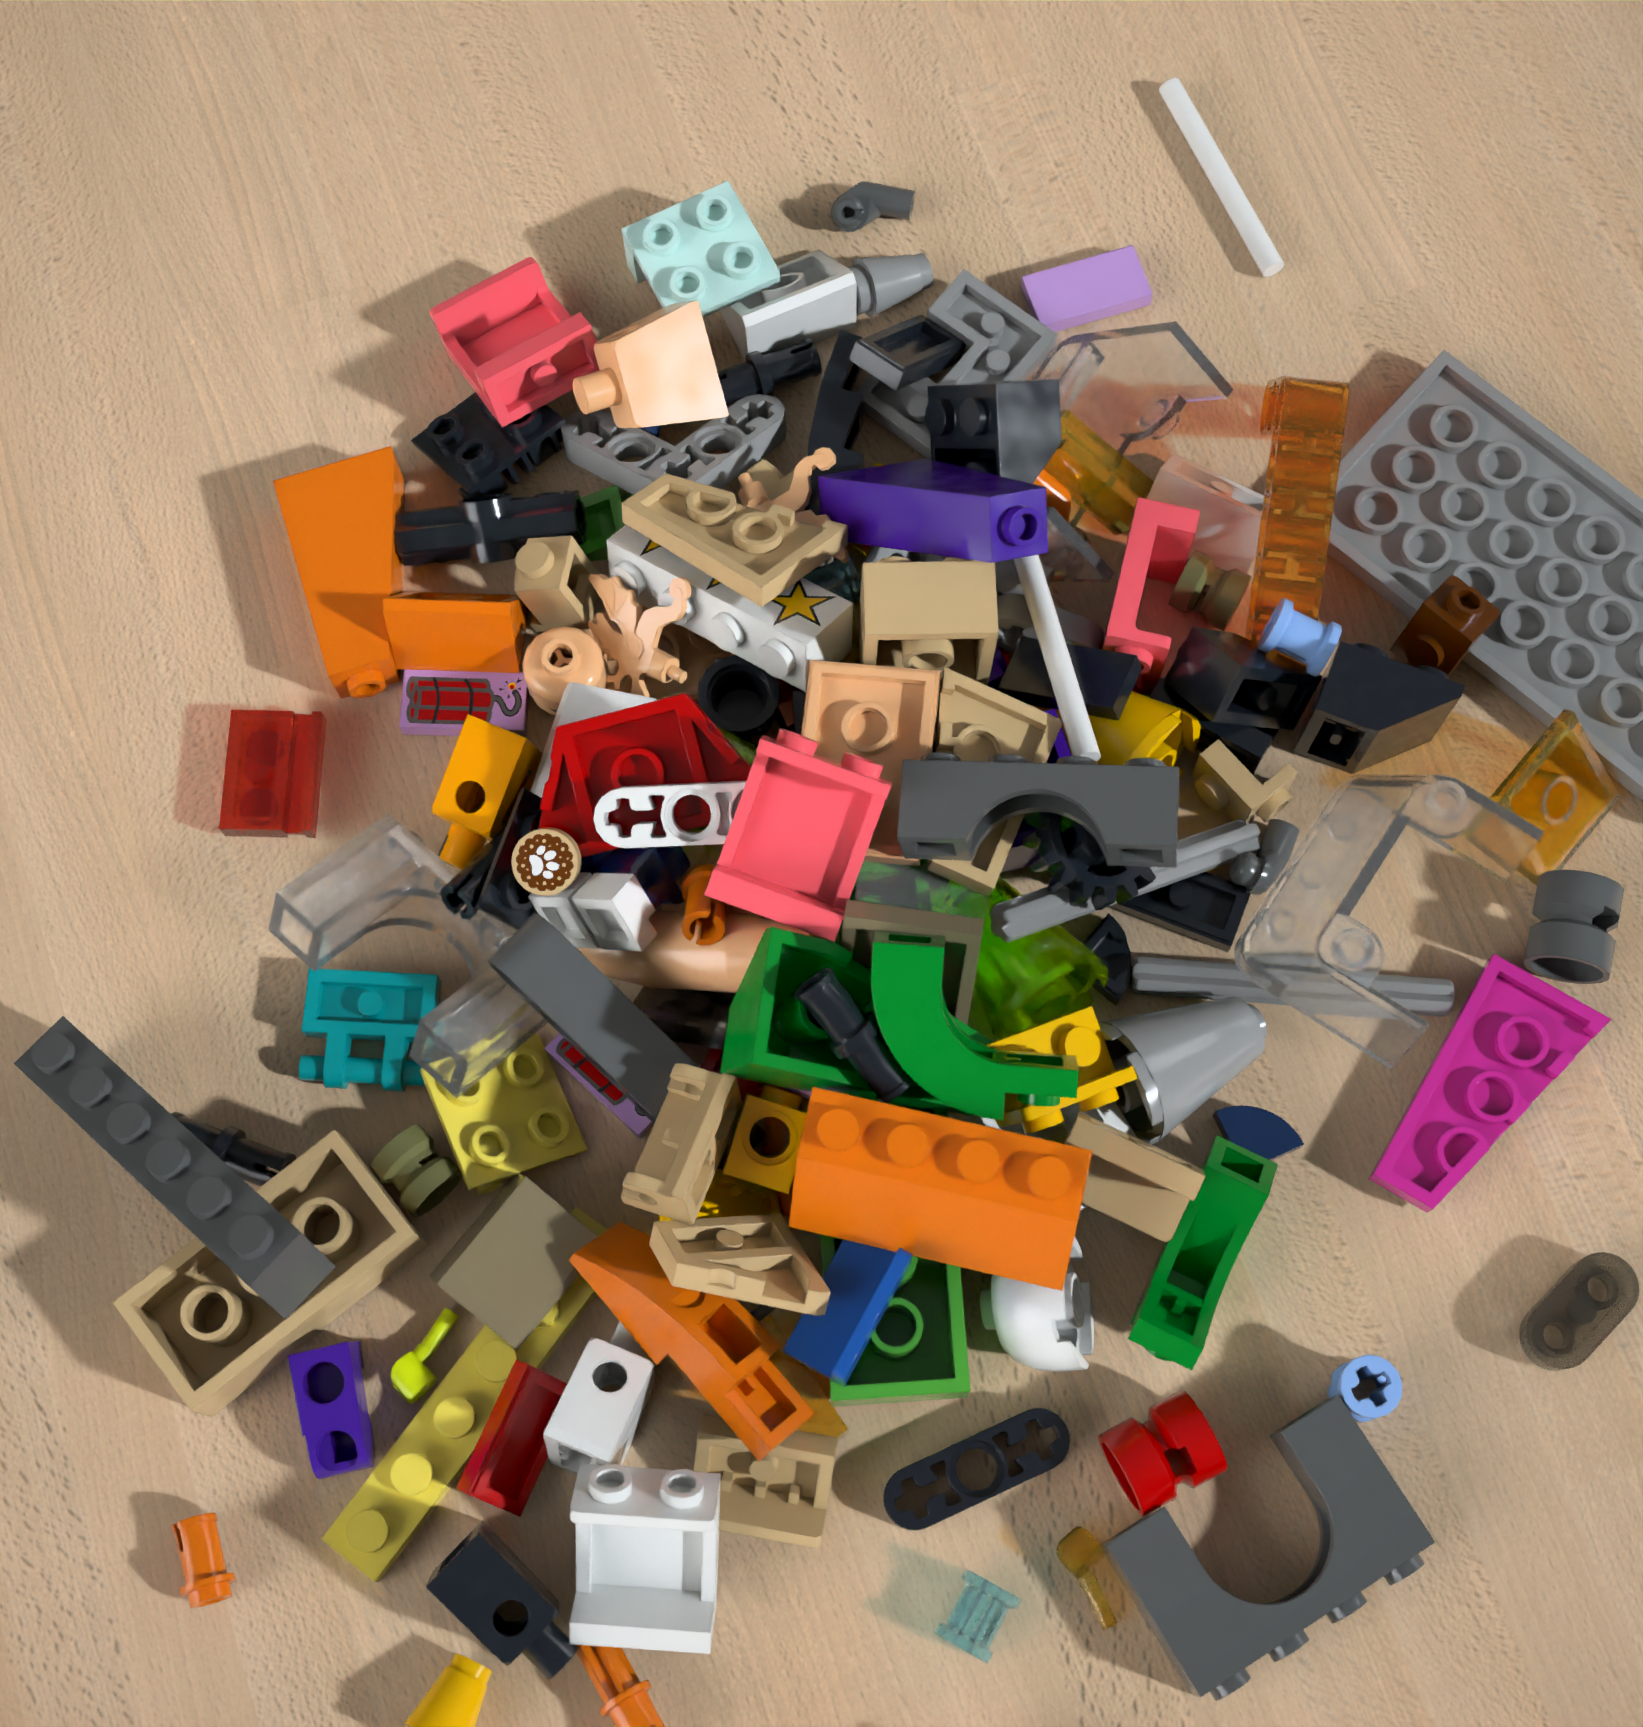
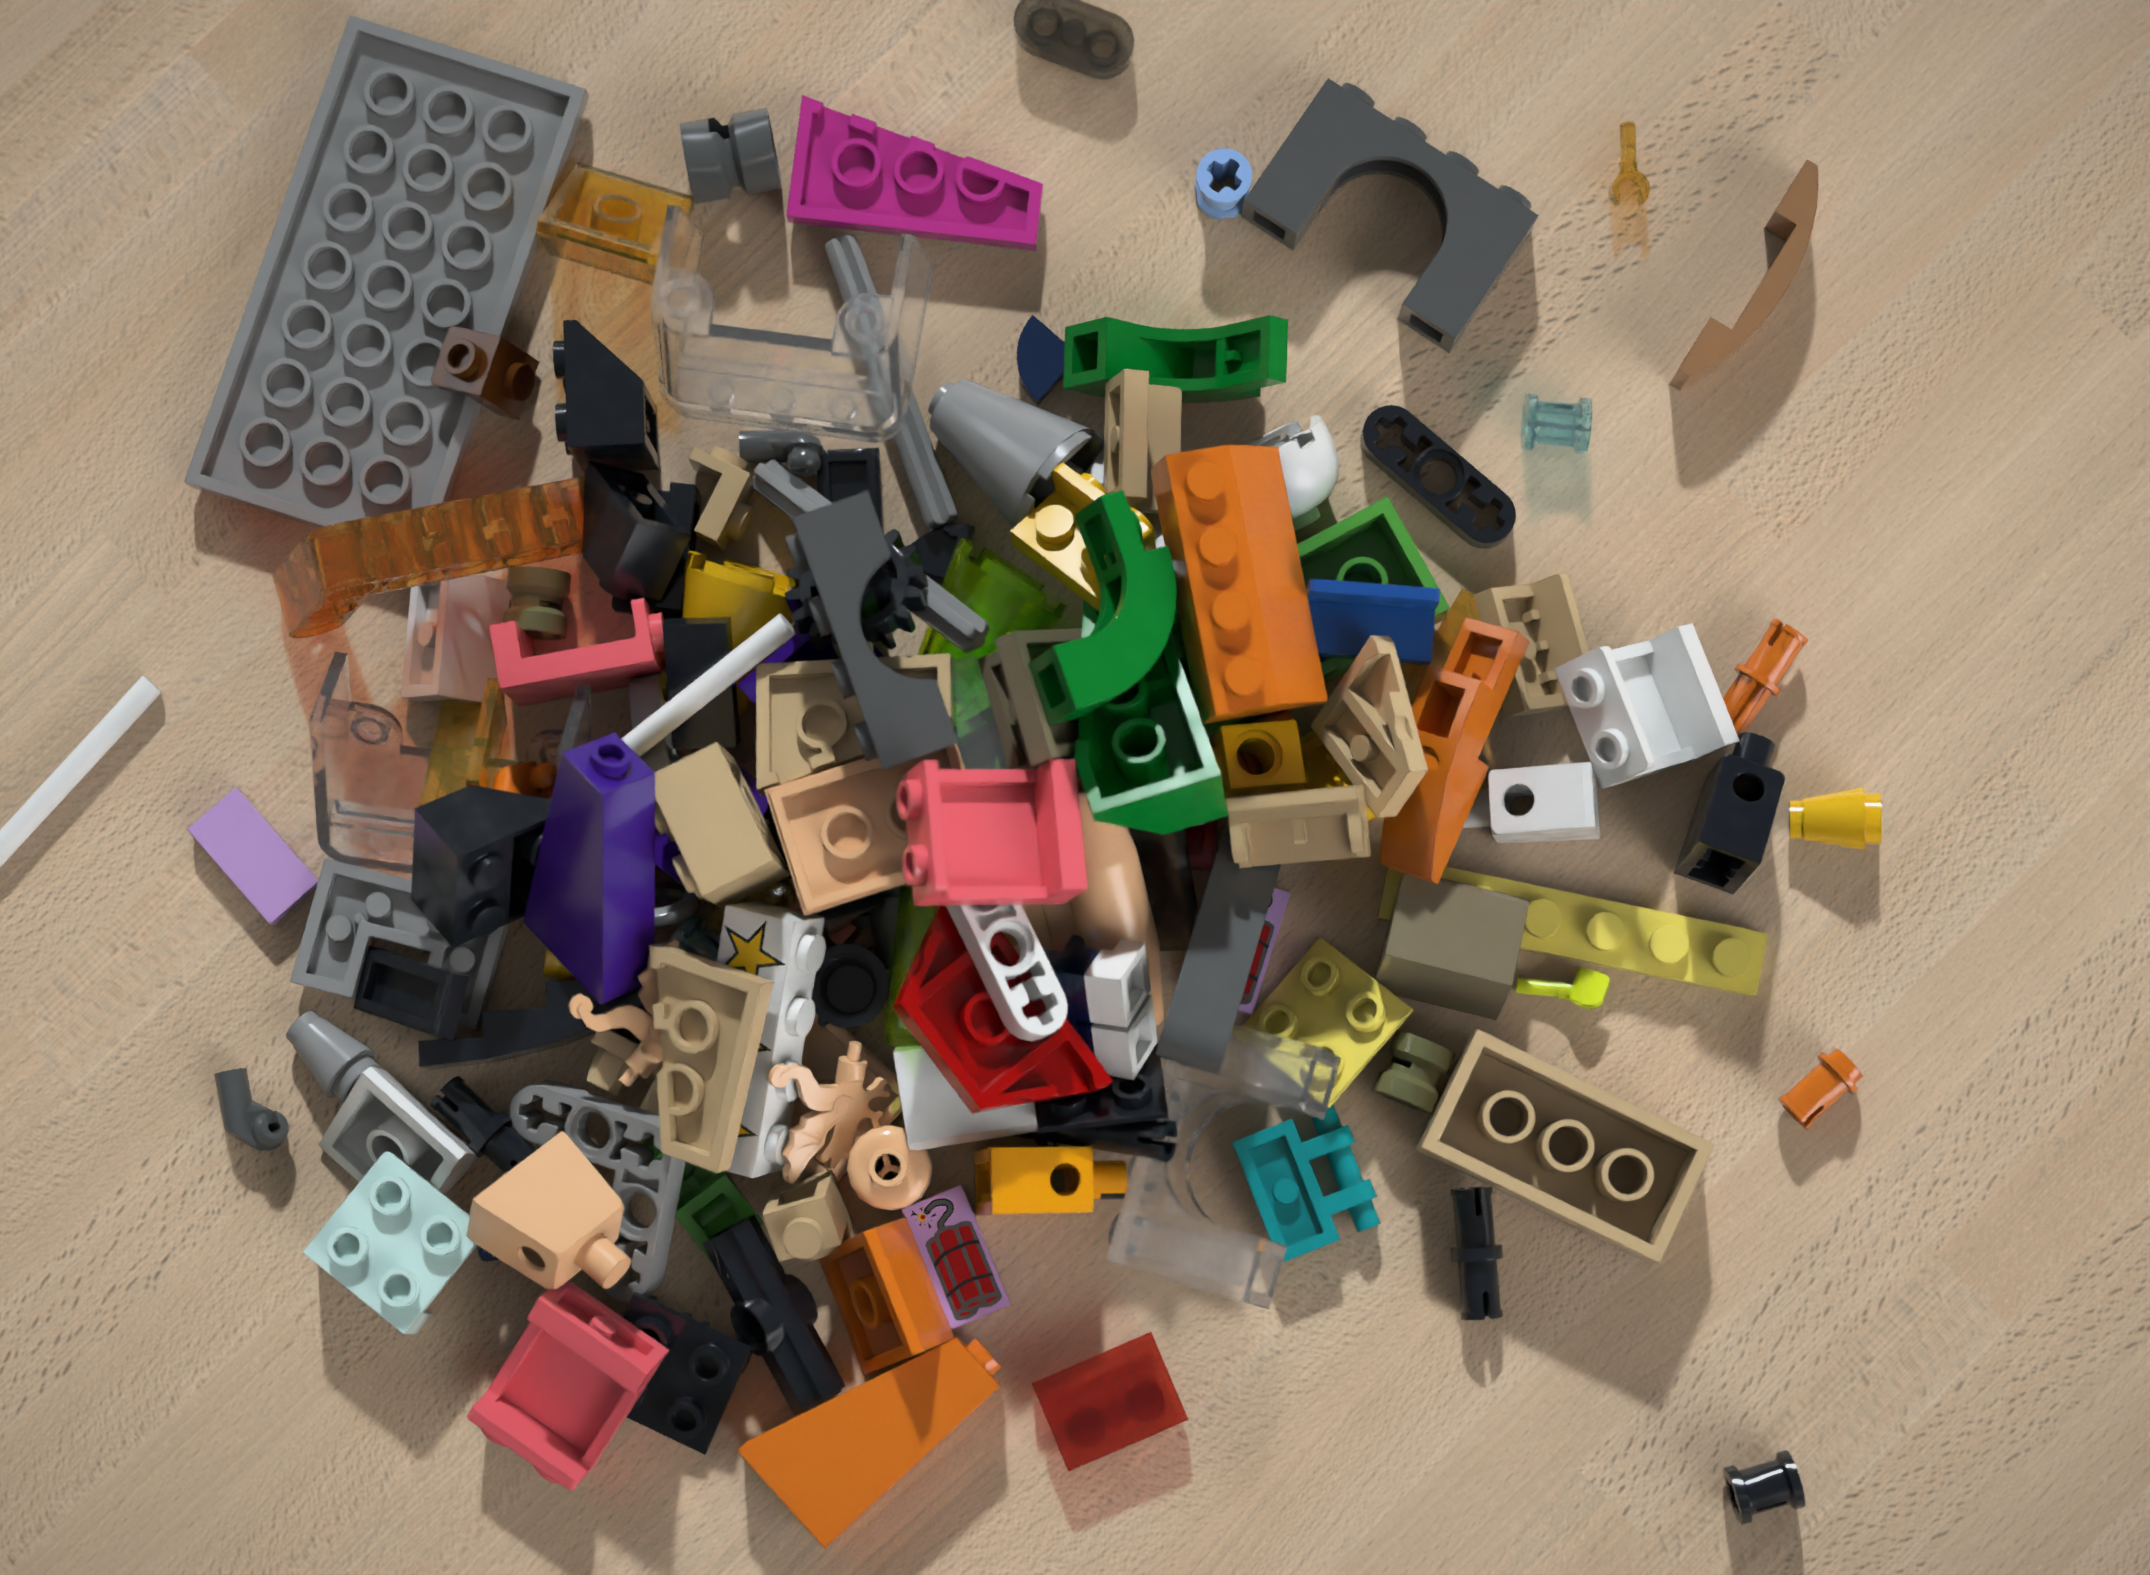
camera: 115 degrees left, 10 degrees up
(176, 1168) = (1521, 1271): dark grey brick -> none
(333, 1408) = (1644, 1041): dark purple leg -> none
(512, 1442) = (1596, 869): red tile -> none
(546, 861) = (1103, 1066): tile -> none
(701, 909) = (1062, 920): orange pin -> none
(853, 1034) = (1152, 703): black pin -> none
(1078, 1553) = (1466, 363): clear yellow hand -> none
(1163, 1452) = (1355, 326): red wheel -> none
(1300, 637) = (568, 491): light blue bush -> none

